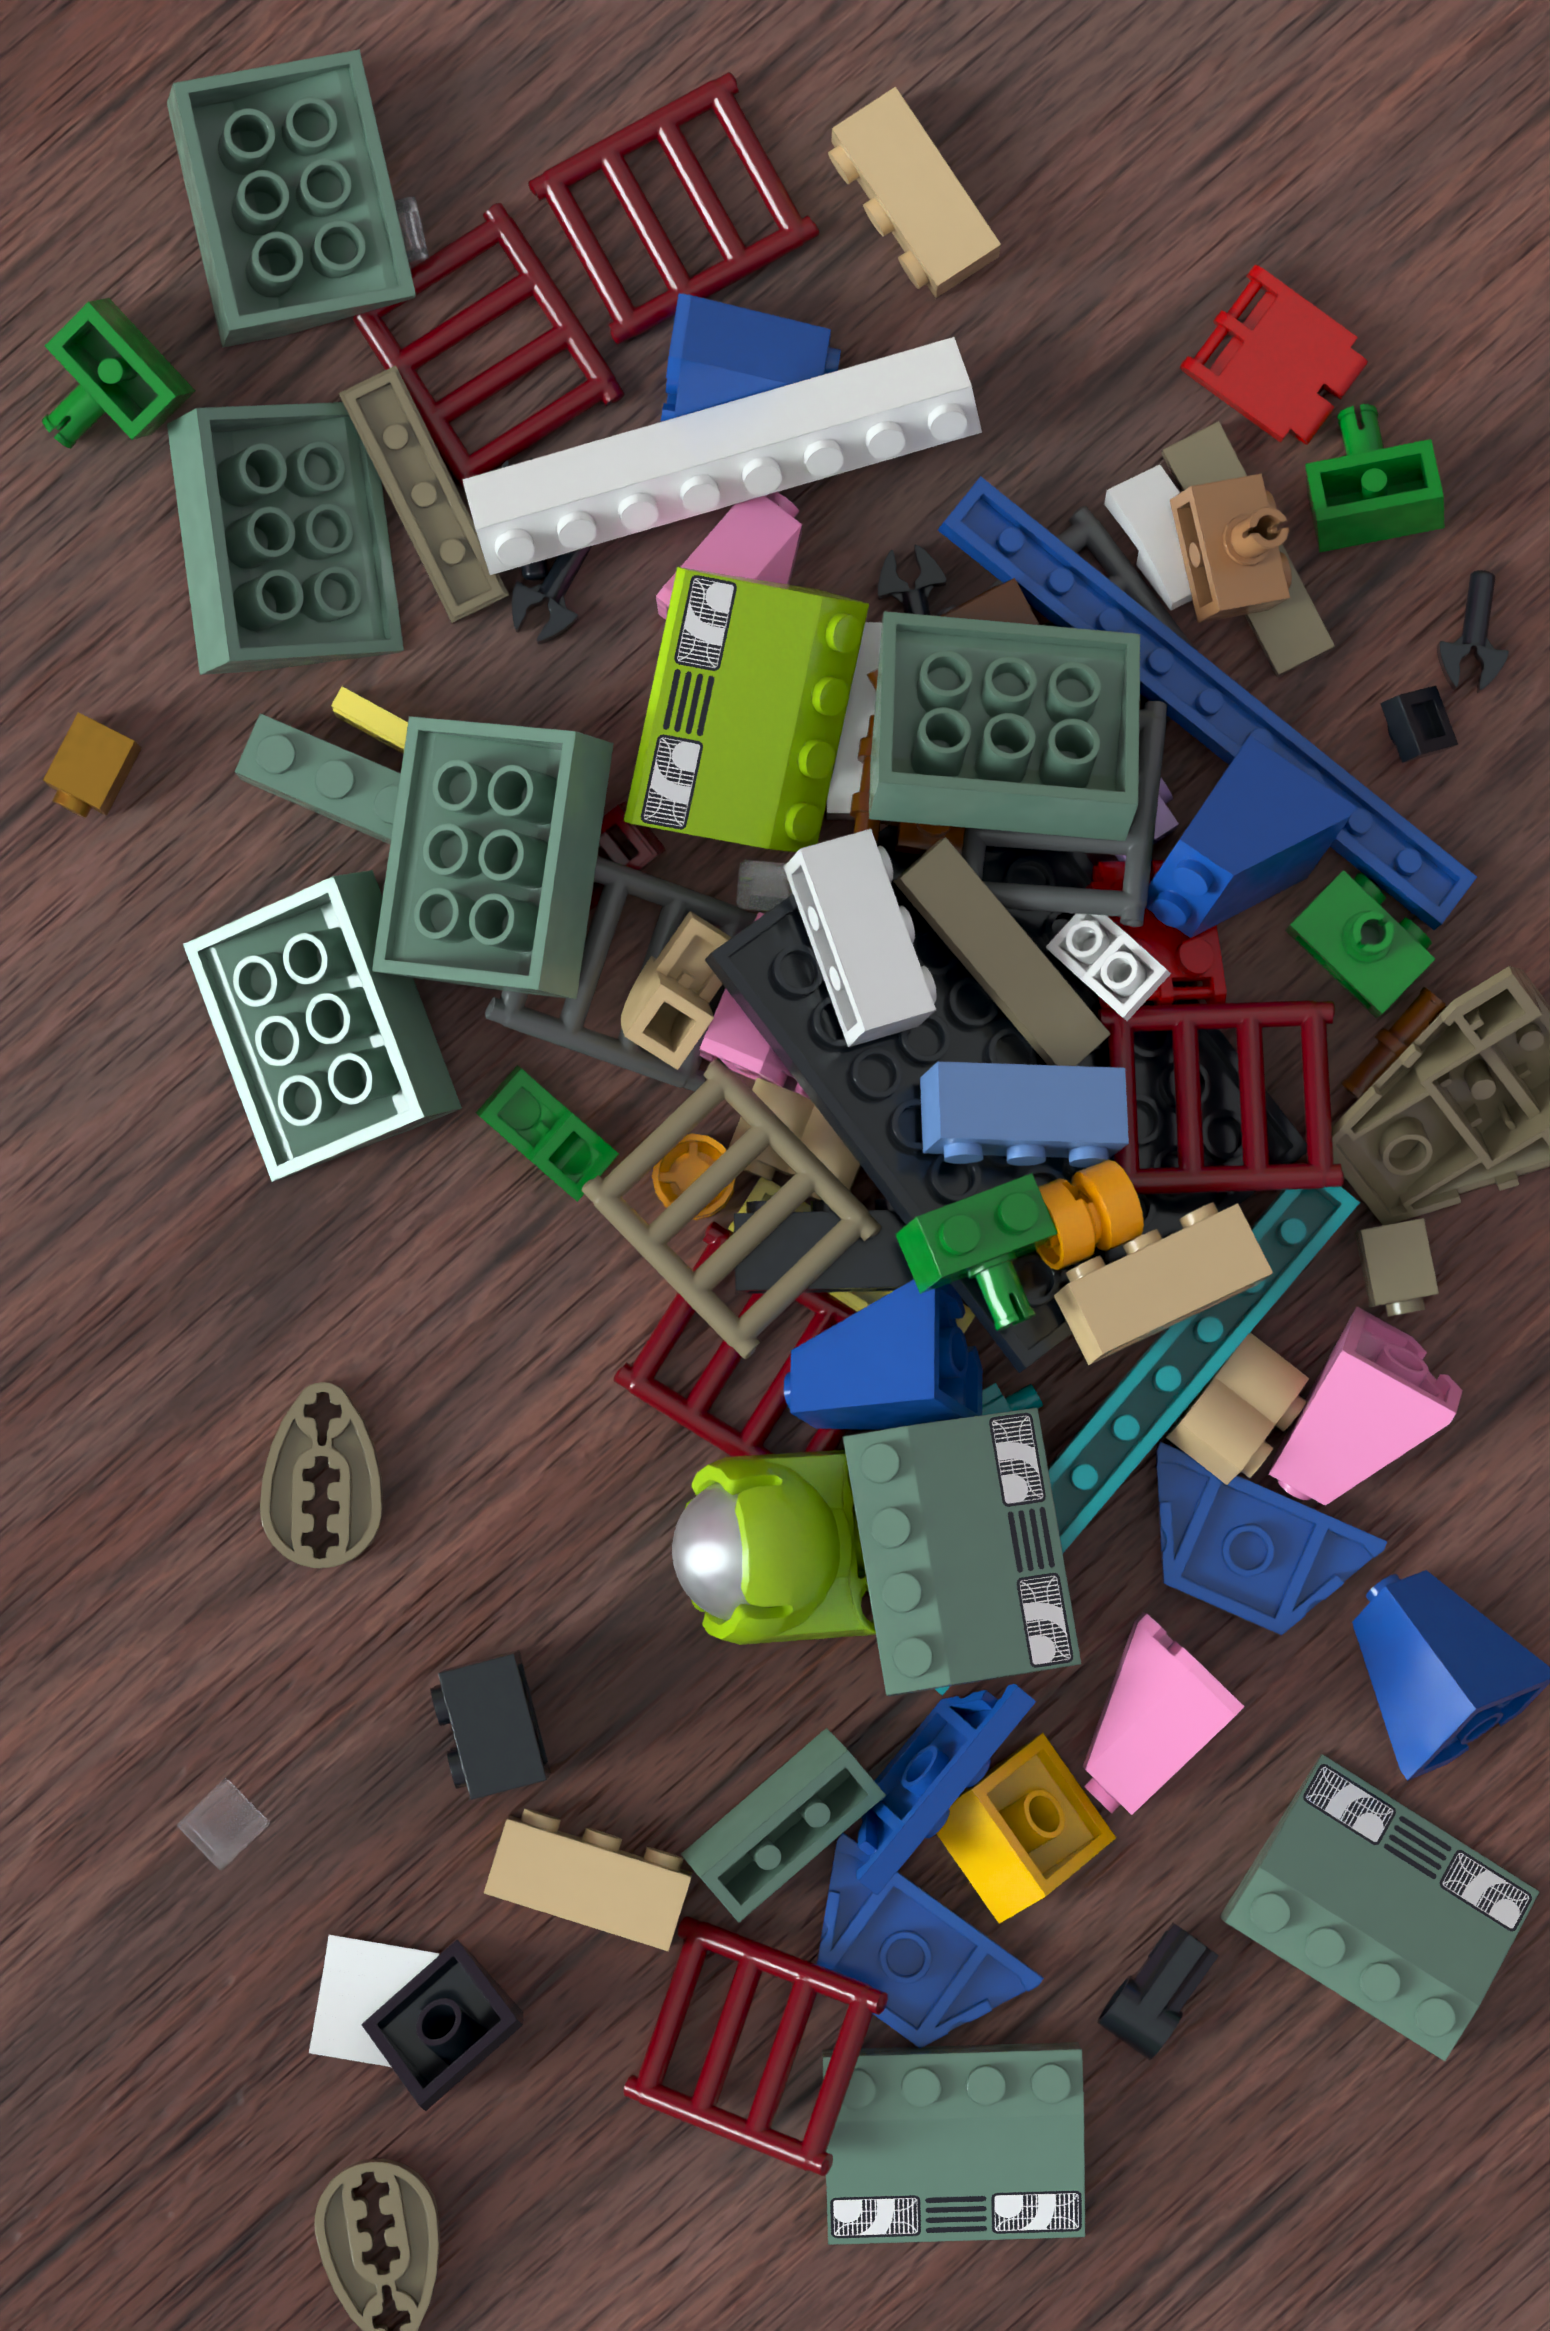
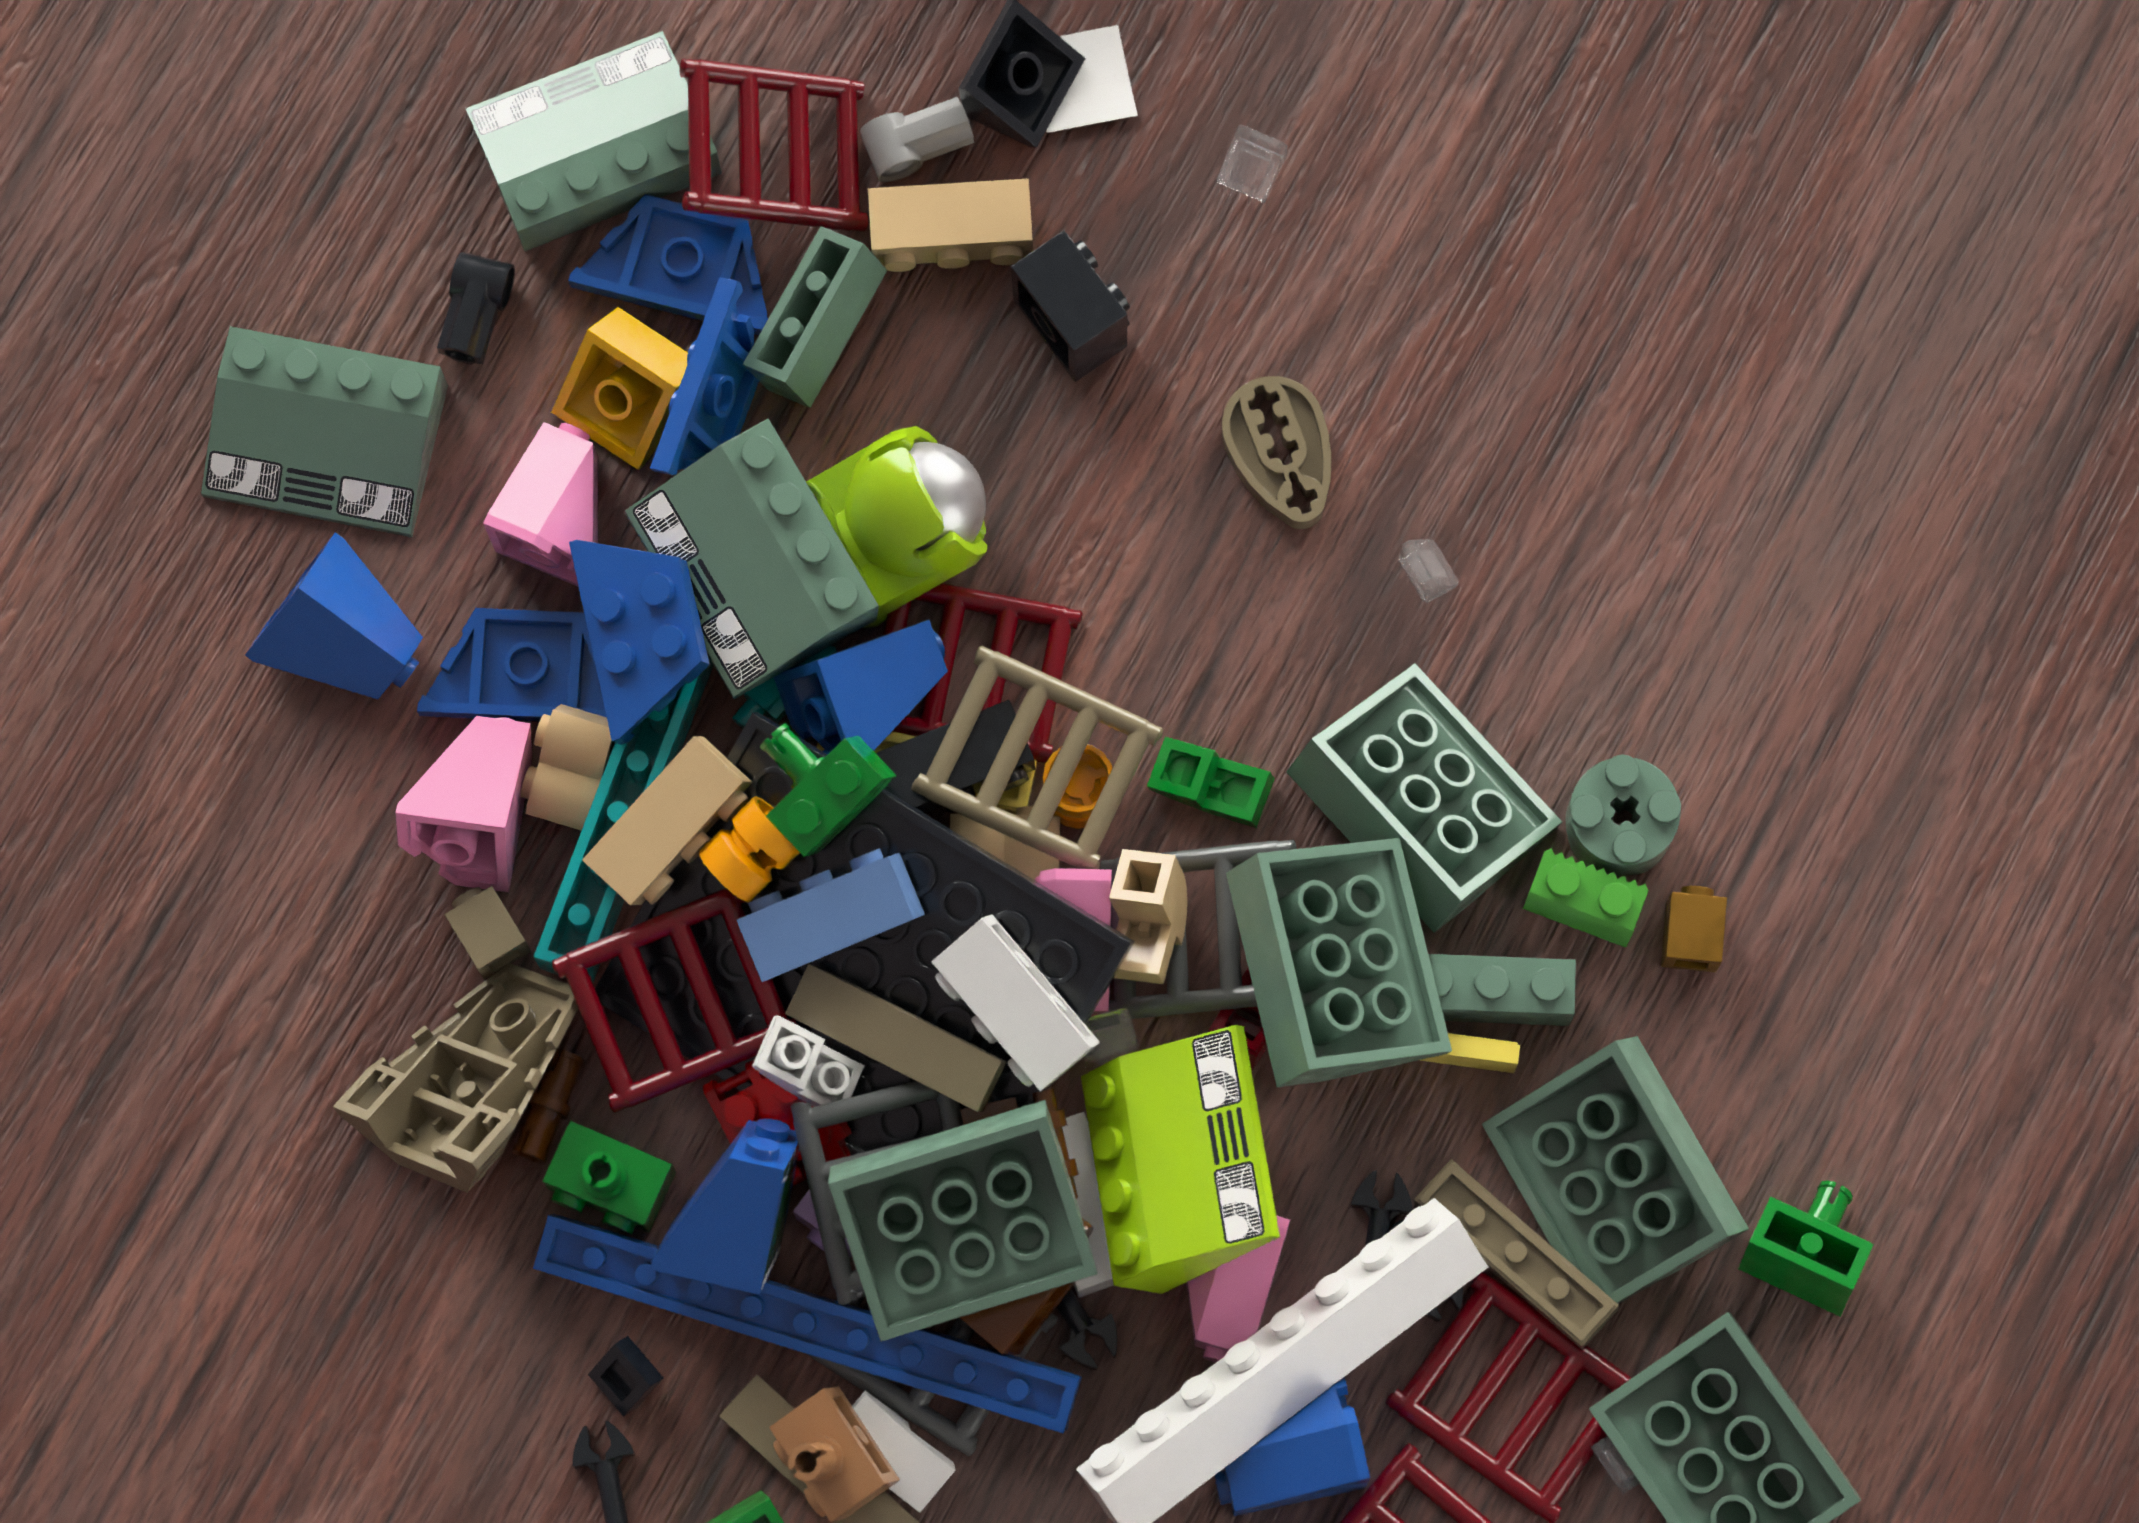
camera: 160 degrees right, 10 degrees down
(82, 905) = (1620, 786): none -> sand green brick
(193, 844) = (1586, 898): none -> bright green brick
(213, 1280) = (1427, 568): none -> clear slope
(605, 1999) = (903, 143): none -> light grey piece
(1114, 1521) = (639, 629): none -> blue wing

